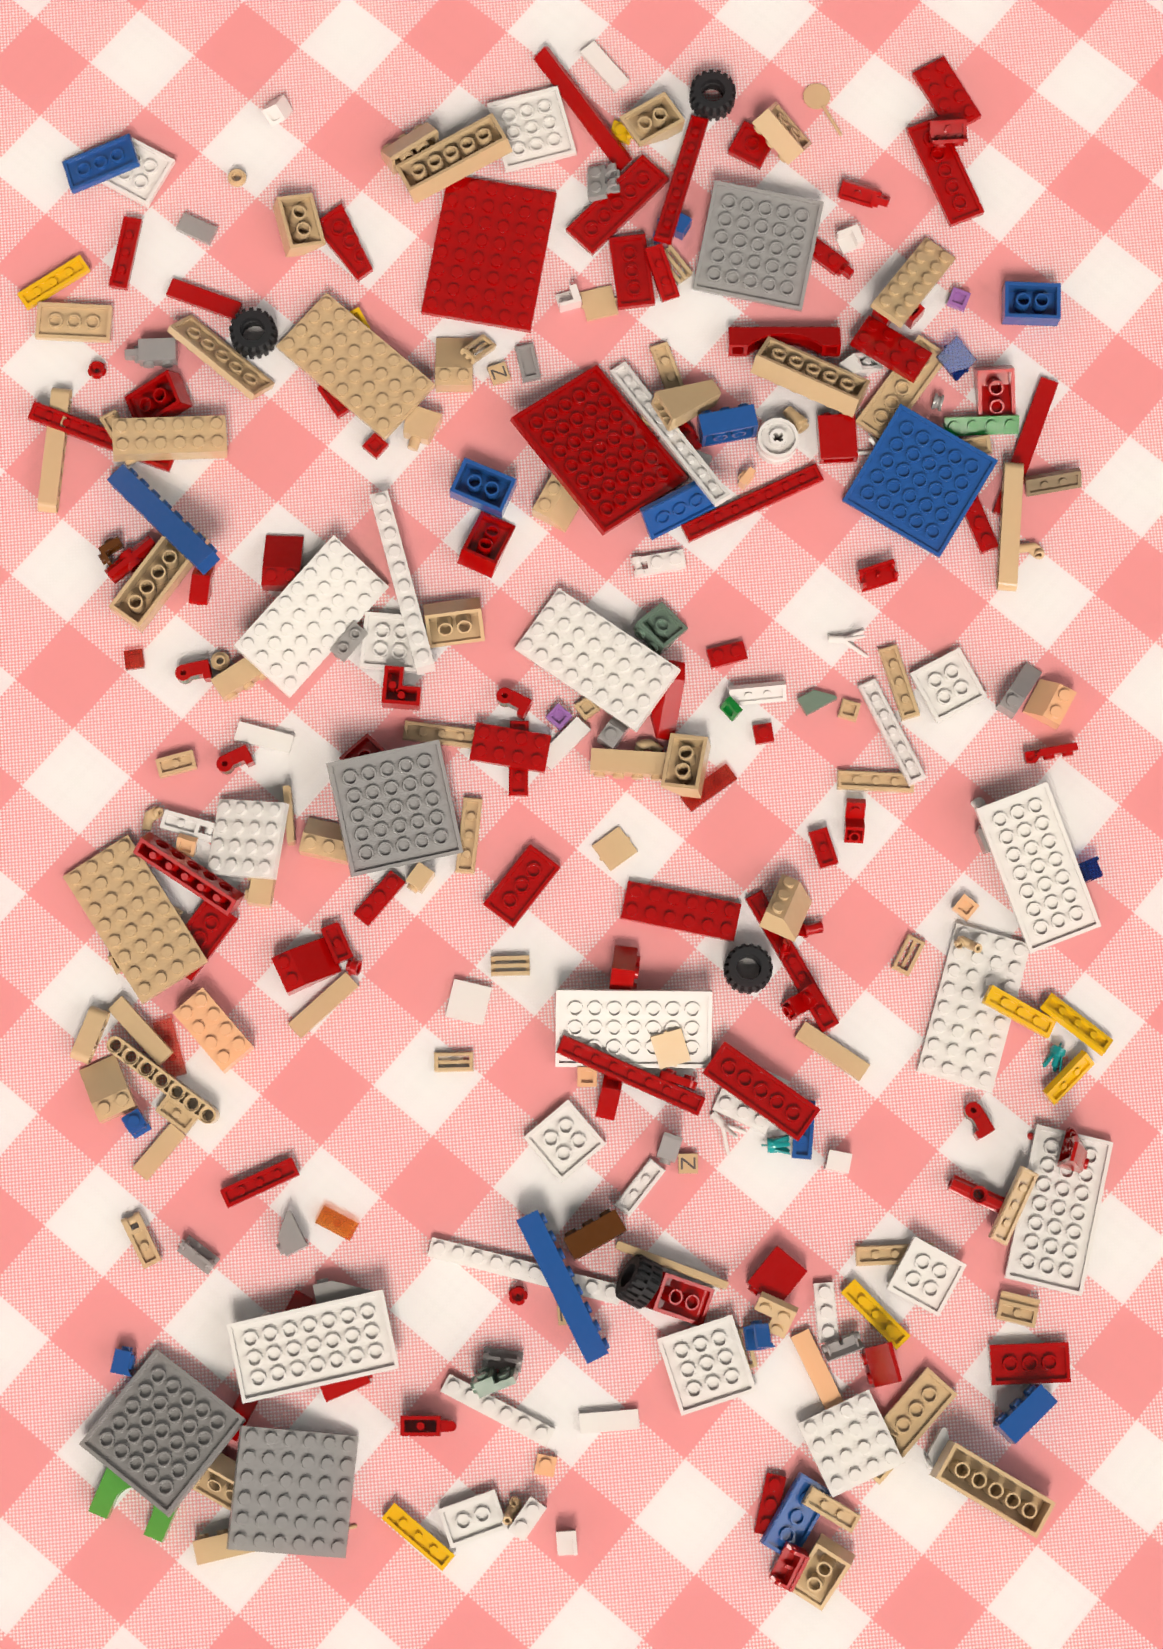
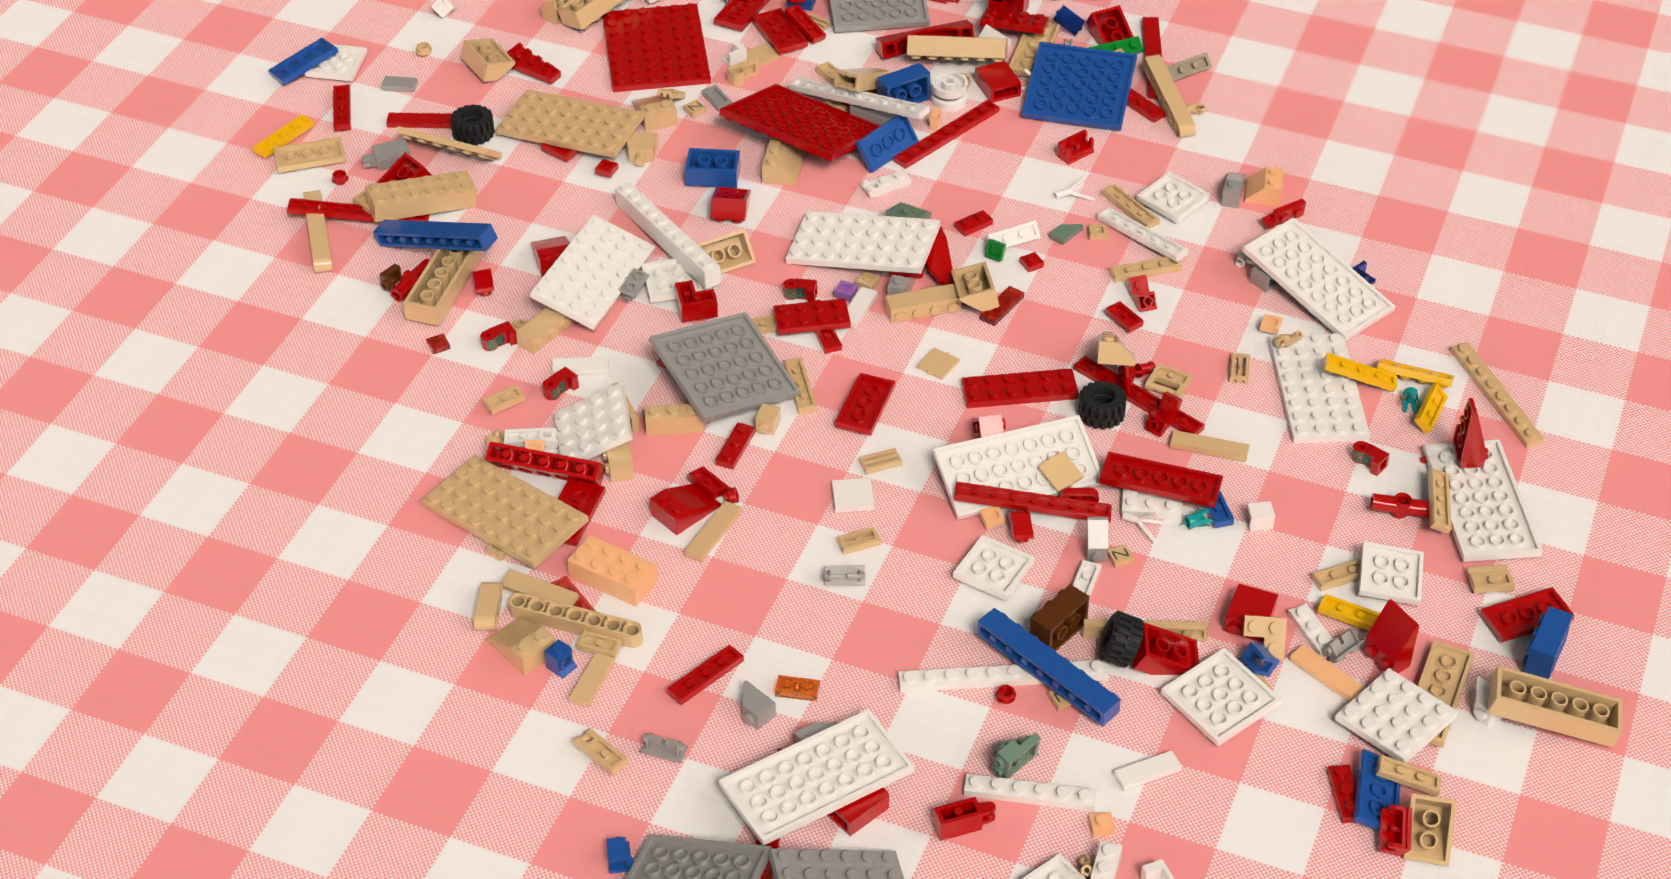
camera: 15 degrees left, 35 degrees down
(428, 1106) = (845, 575): none -> light grey hinge
(573, 328) = (739, 72): none -> tan plate
(833, 949) = (1170, 377): none -> tan plate
(1144, 1076) = (1497, 395): none -> tan plate

